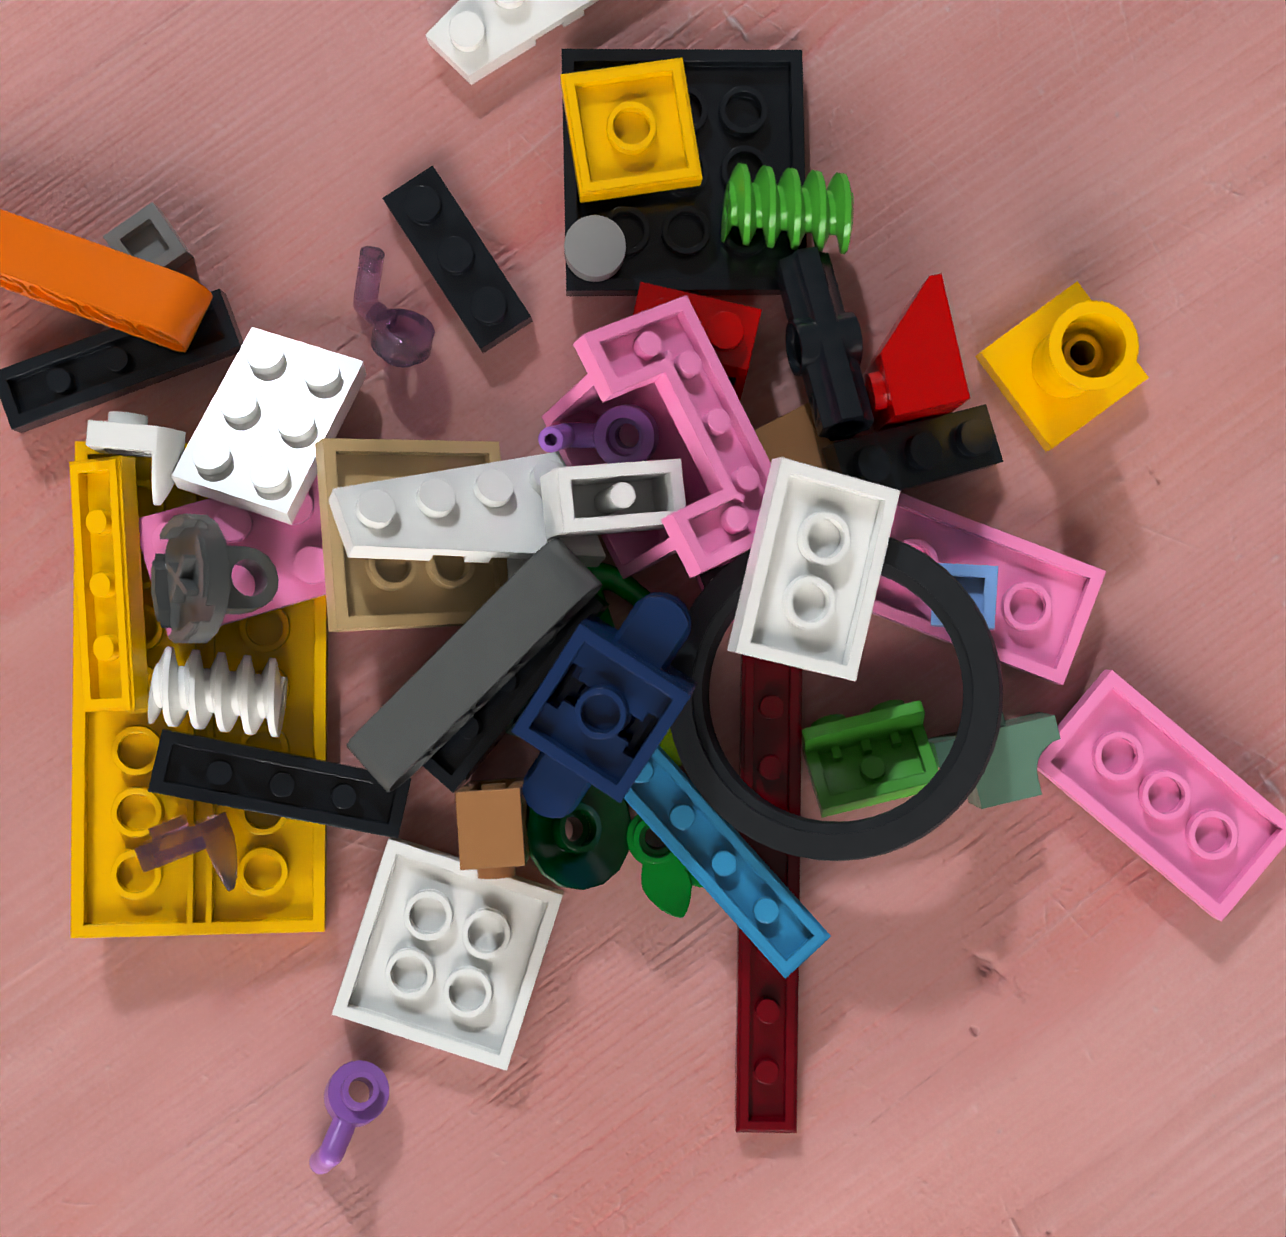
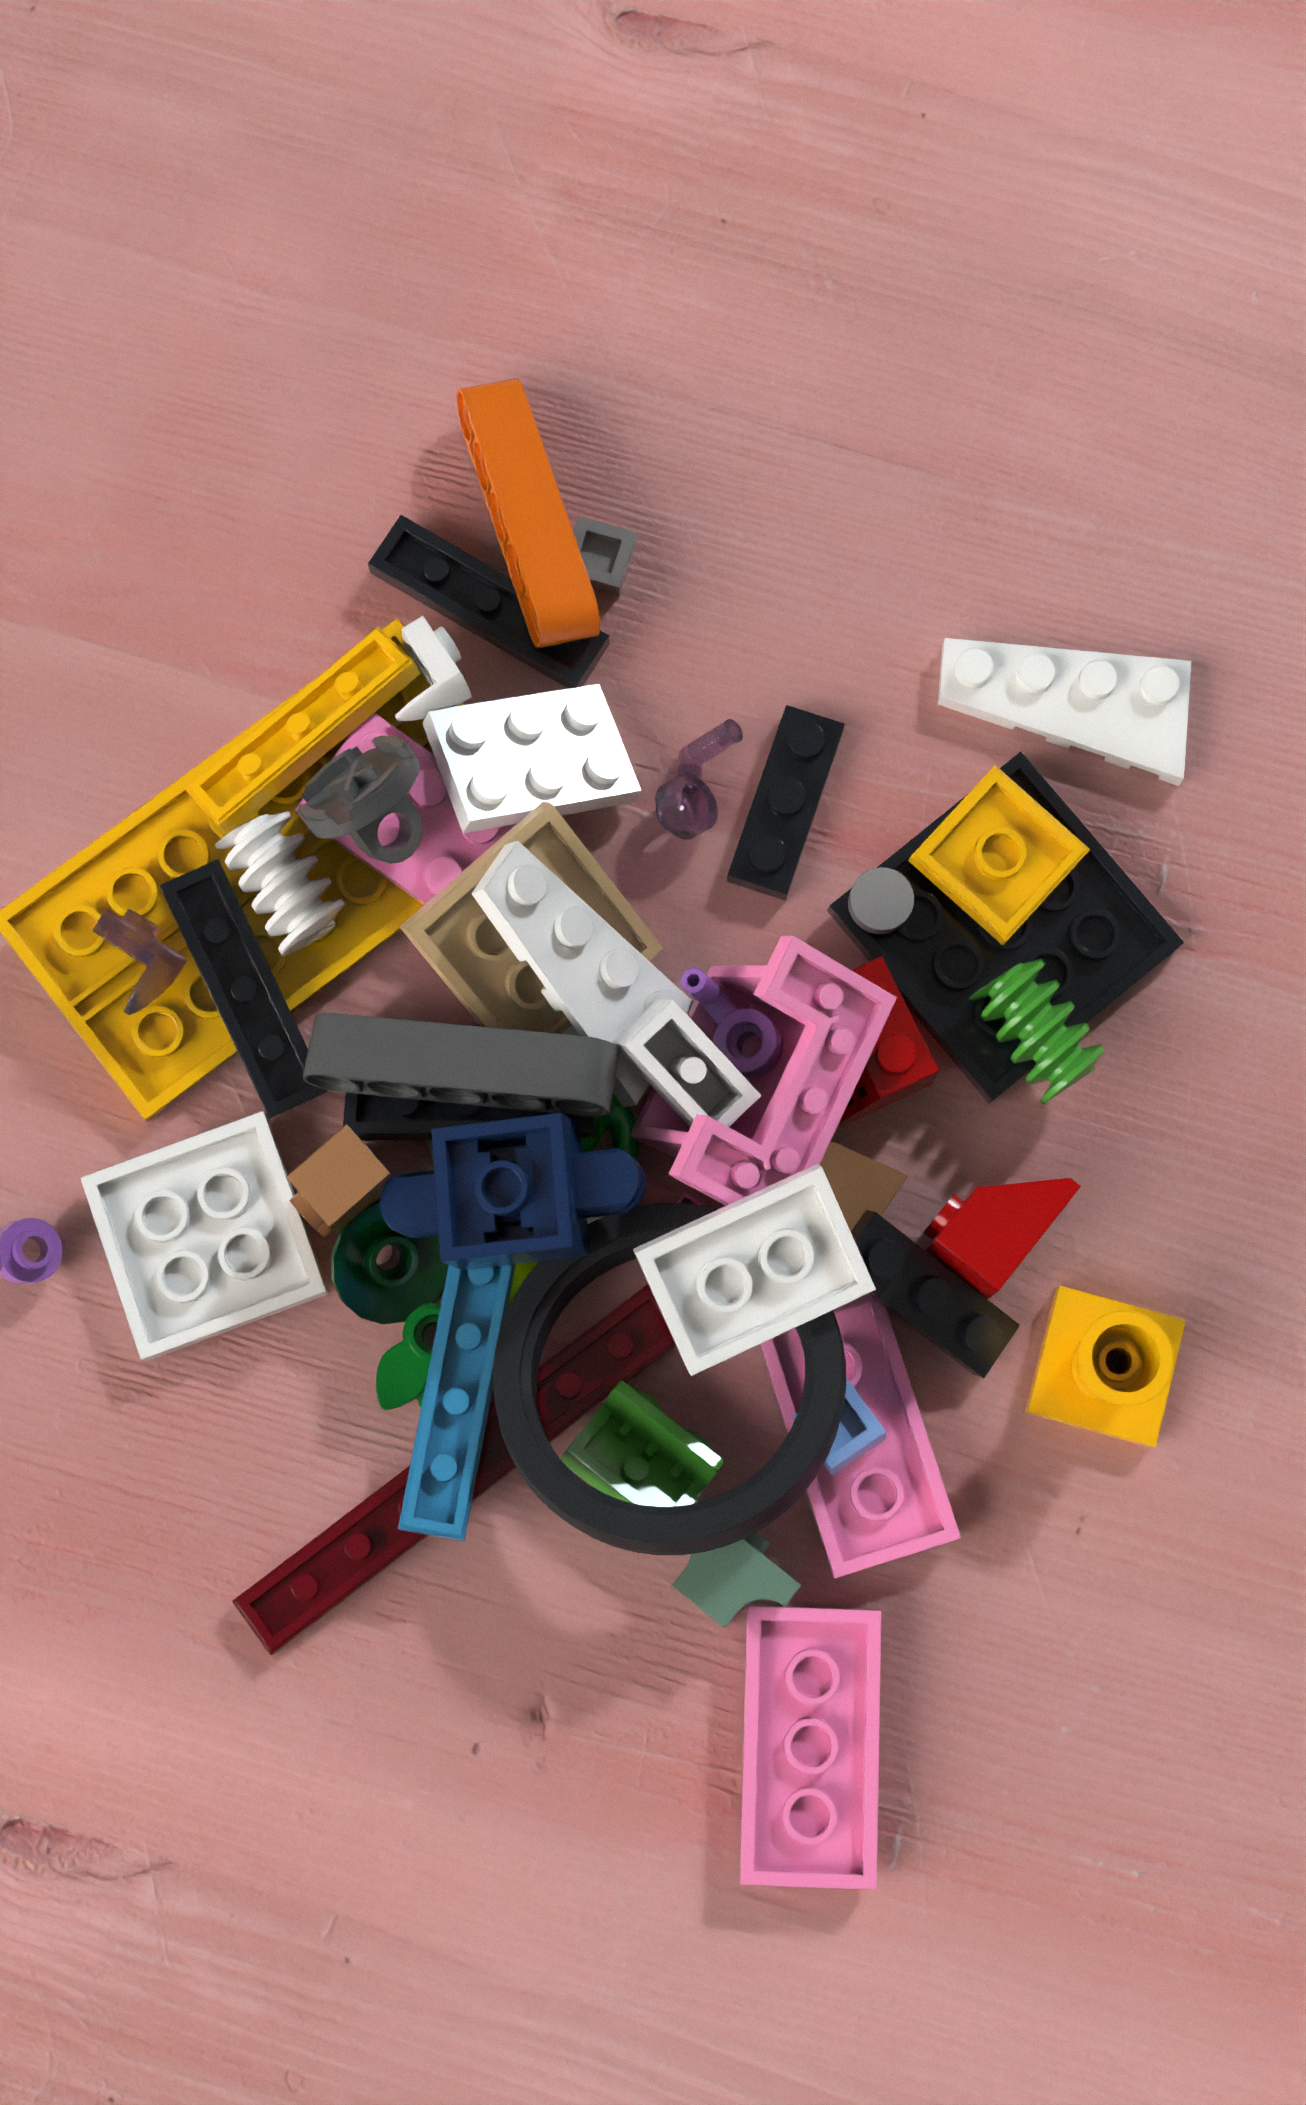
camera: 55 degrees right, 10 degrees down
(824, 344) = (951, 1143): black piece -> none

